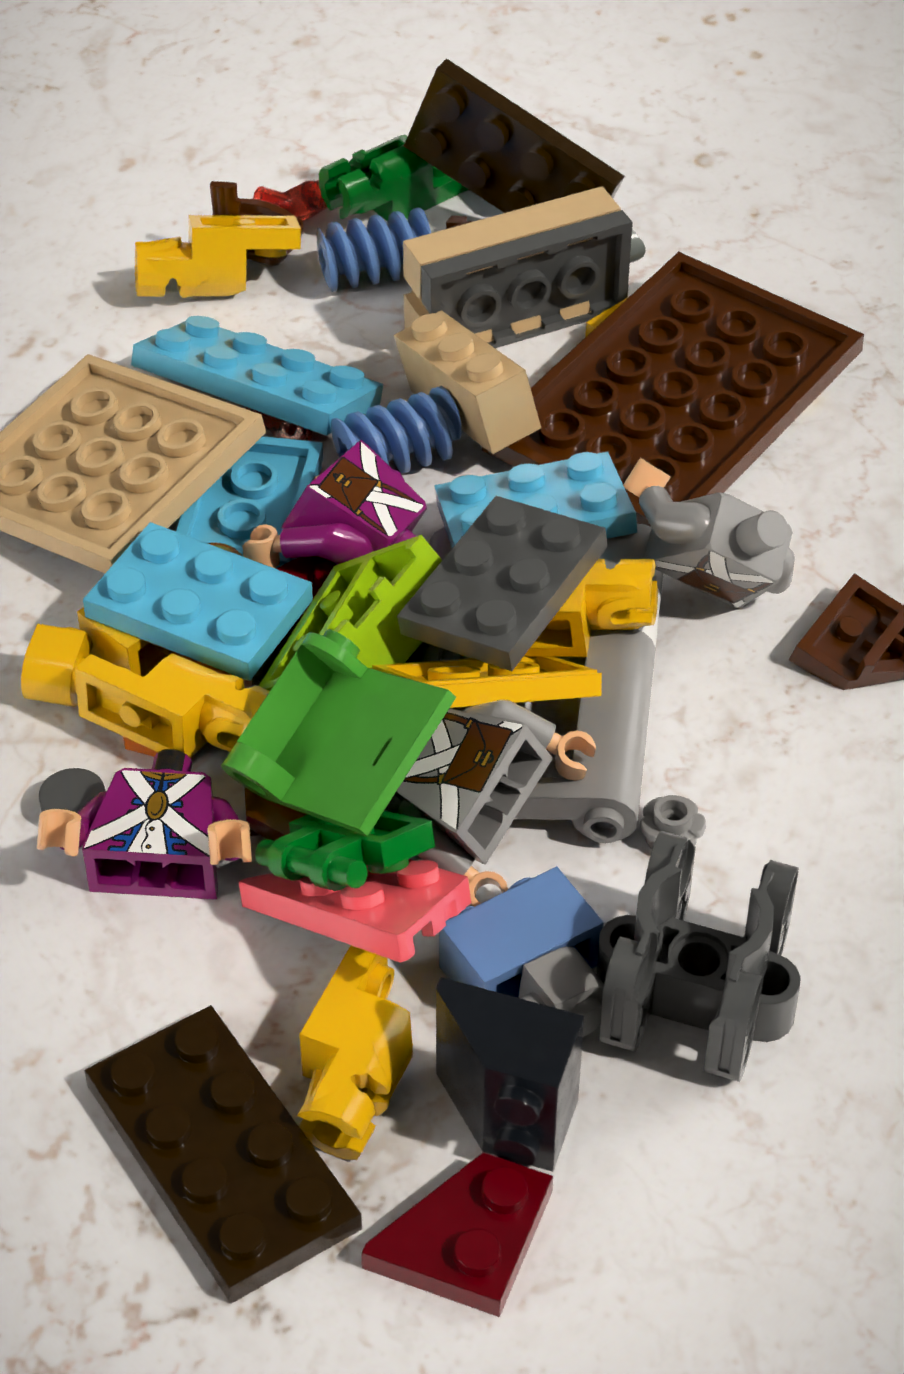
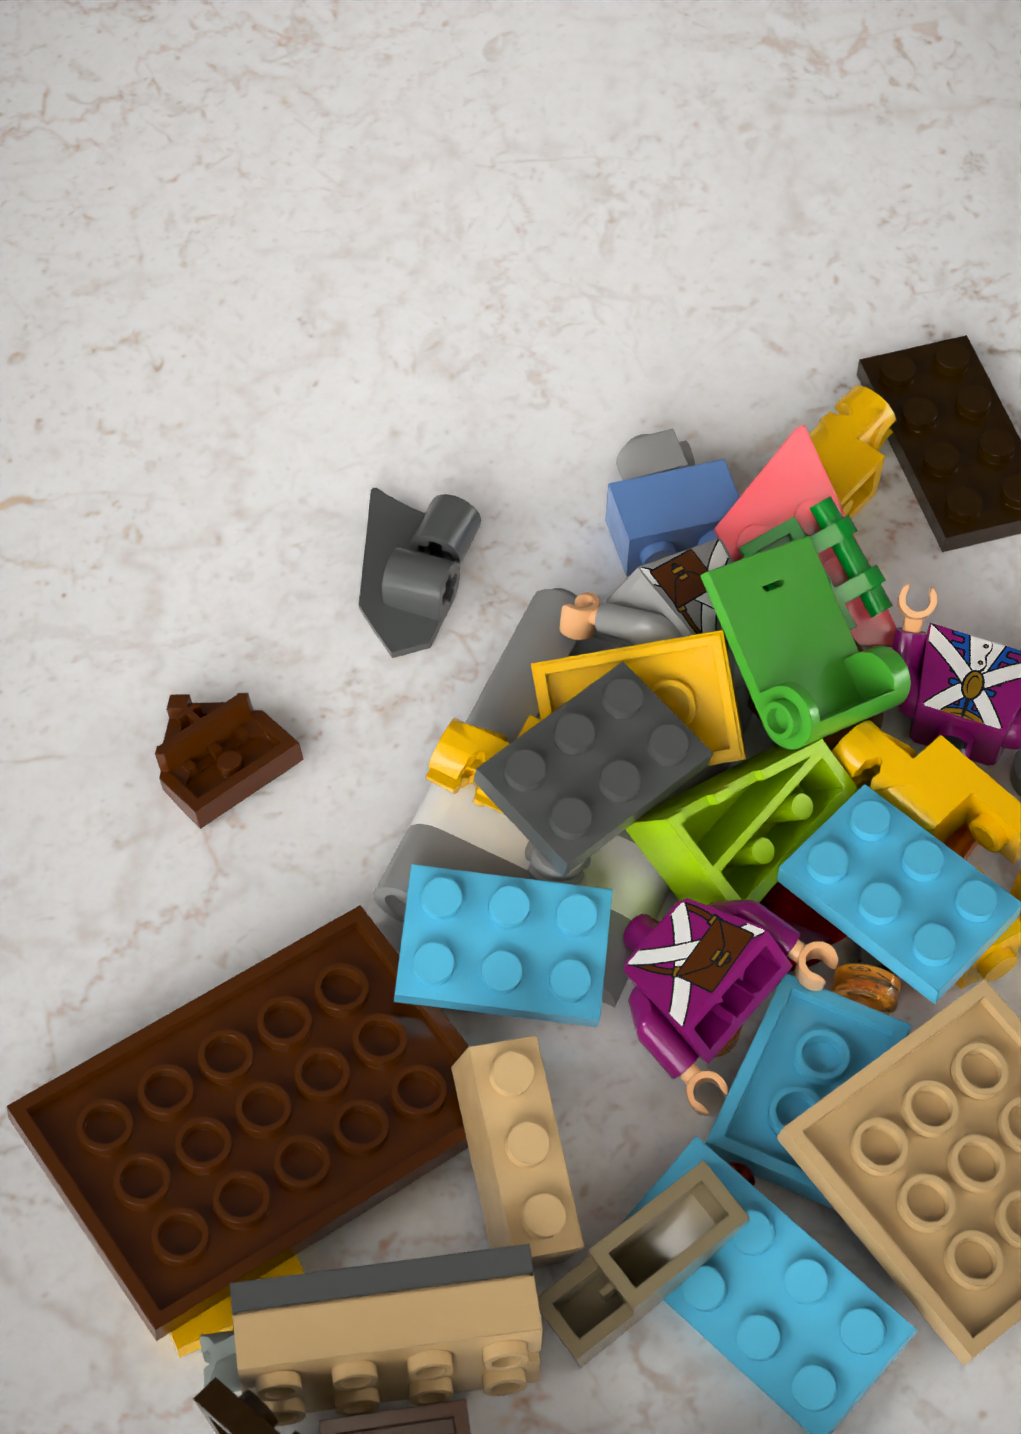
camera: 165 degrees left, 10 degrees up
(348, 336) = (641, 1263): none -> dark tan slope
(403, 429) = (624, 1119): medium blue piece -> none
(466, 1234) = (781, 340): dark red wing -> none
(509, 1070) = (724, 386): black slope -> none
(672, 815) = (493, 619): light grey plate -> none
(696, 973) = (517, 442): dark grey piece -> none
(714, 540) = (331, 812): light grey torso -> none
(779, 824) = (413, 567): none -> dark grey panel

